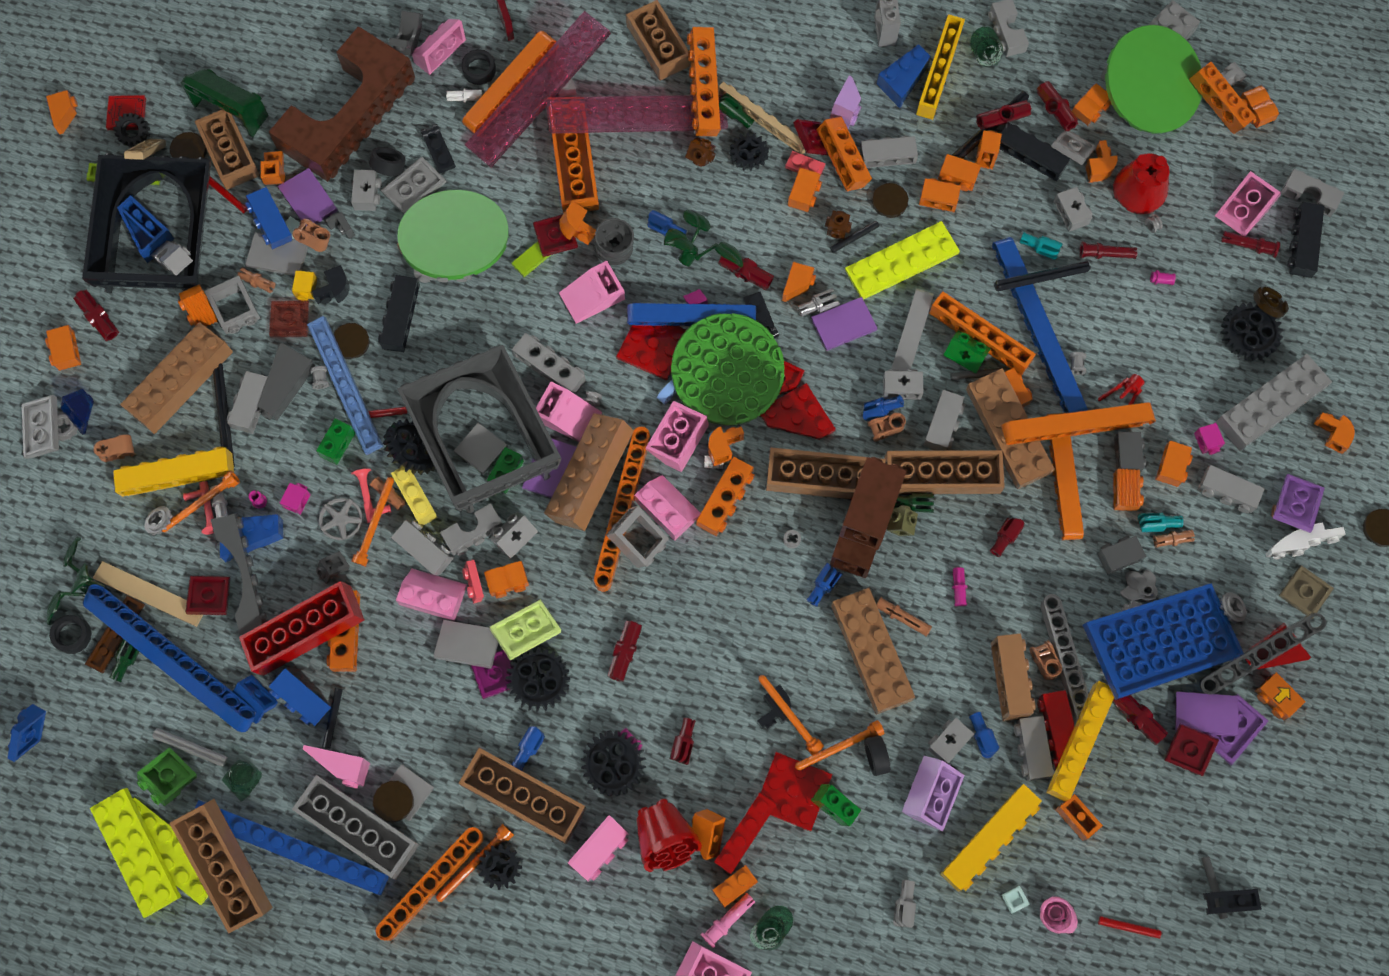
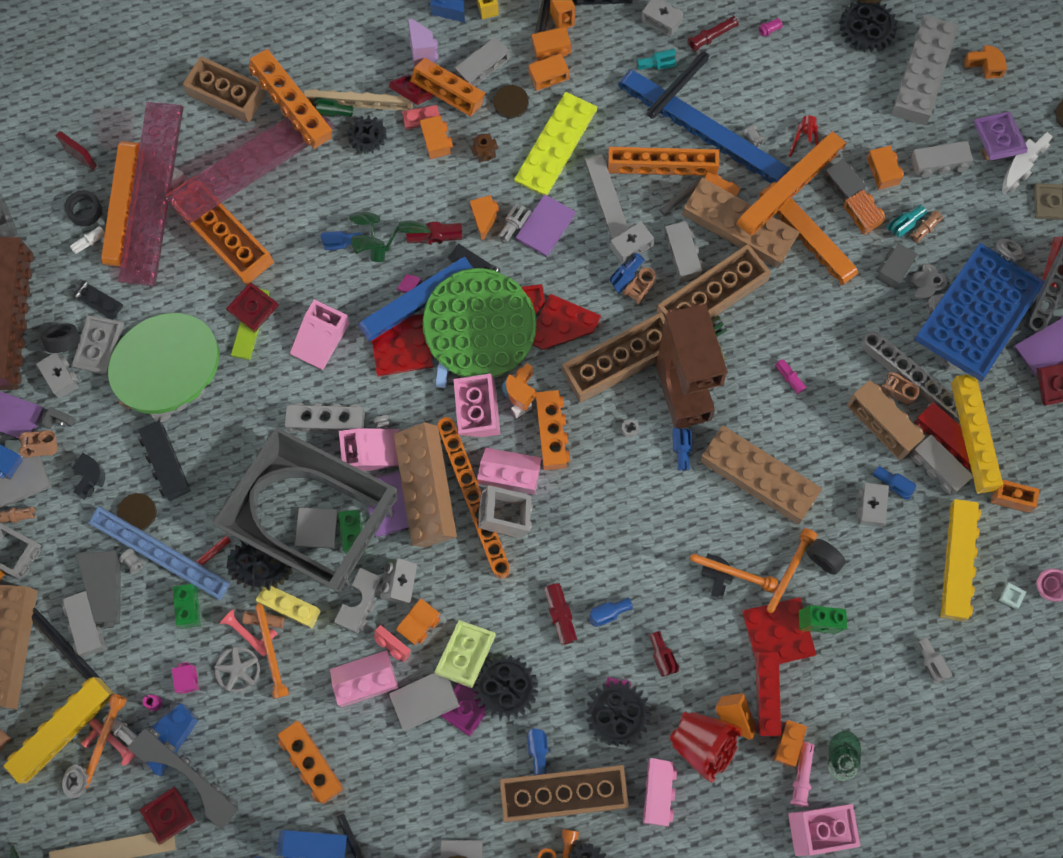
camera: 30 degrees left, 0 degrees up
(289, 319) = (68, 529): clear red tile -> none
(301, 628) = (273, 786): red brick -> none
(304, 284) = (61, 491): yellow brick -> none
(331, 566) = (259, 715): dark grey bracket -> none
(423, 547) = (327, 644): light grey brick -> none
(439, 45) = (35, 211): bright pink slope -> none
(572, 224) = (263, 288): orange brick -> none
(614, 231) = (307, 270): dark grey wheel -> none
(665, 676) = (609, 612): none -> blue arm
(701, 152) = (327, 159): reddish brown brick -> none
(853, 237) = (503, 149): black bar -> none
(887, 608) = (786, 429): nougat pin -> none
(933, 793) = (889, 556): lavender slope -> none
(967, 351) = (661, 183): green brick -> none
(1007, 535) = (798, 309): dark red arm -> none
(1141, 718) = (1006, 385): dark red piece -> none
(1209, 439) = (897, 130): dark pink brick -> none

